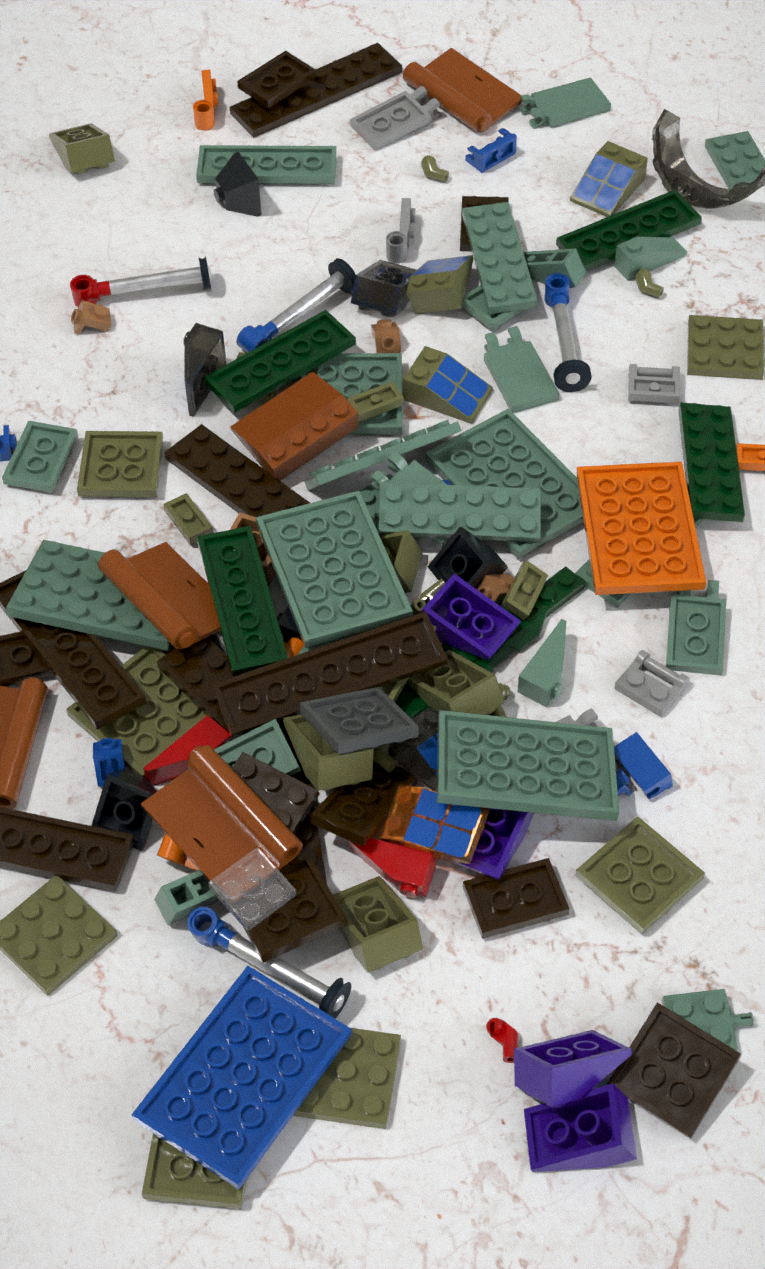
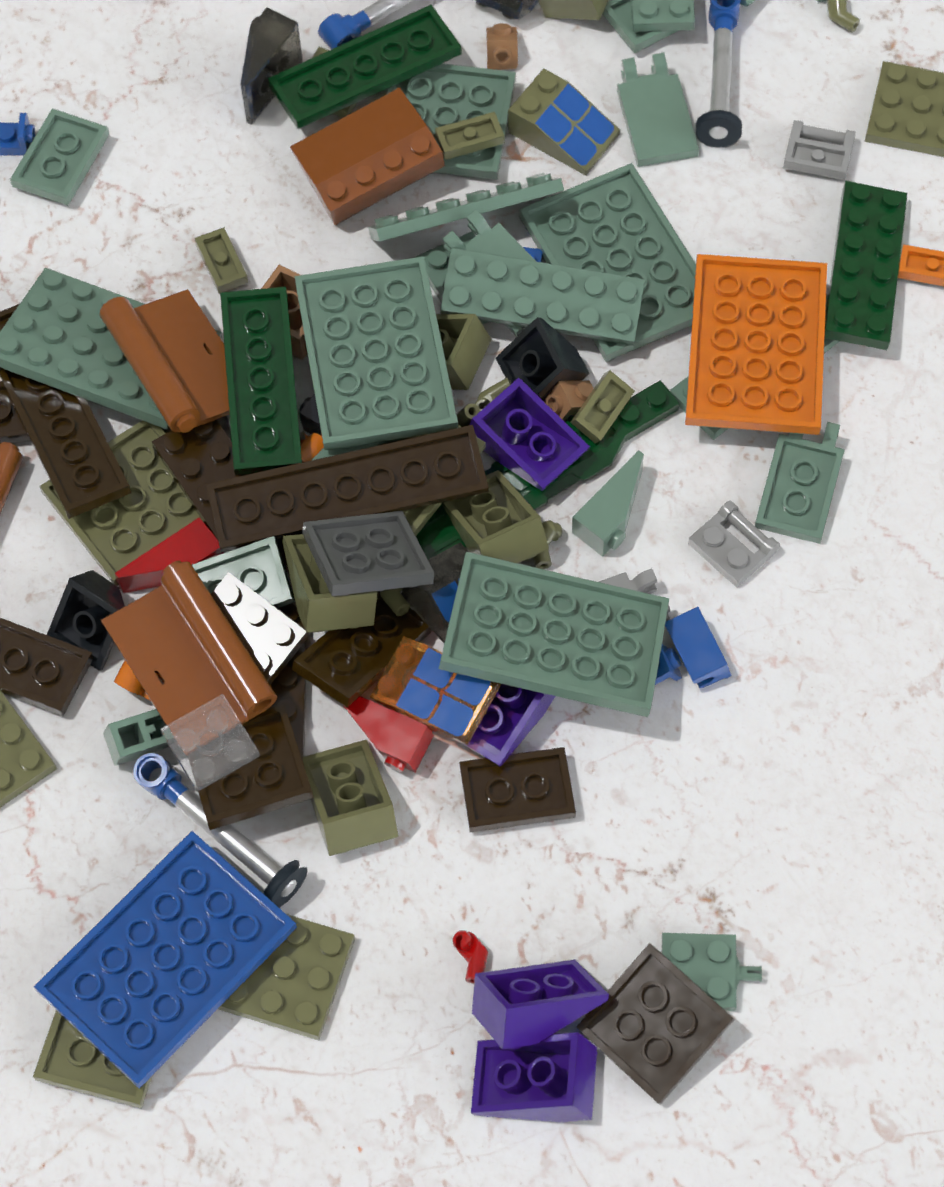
camera: 10 degrees right, 10 degrees up
(107, 758) = (76, 554): blue bracket -> none
(120, 464) = (153, 178): olive plate -> none
(231, 474) = (285, 211): dark brown plate -> none
(640, 874) = (667, 781): olive plate -> none

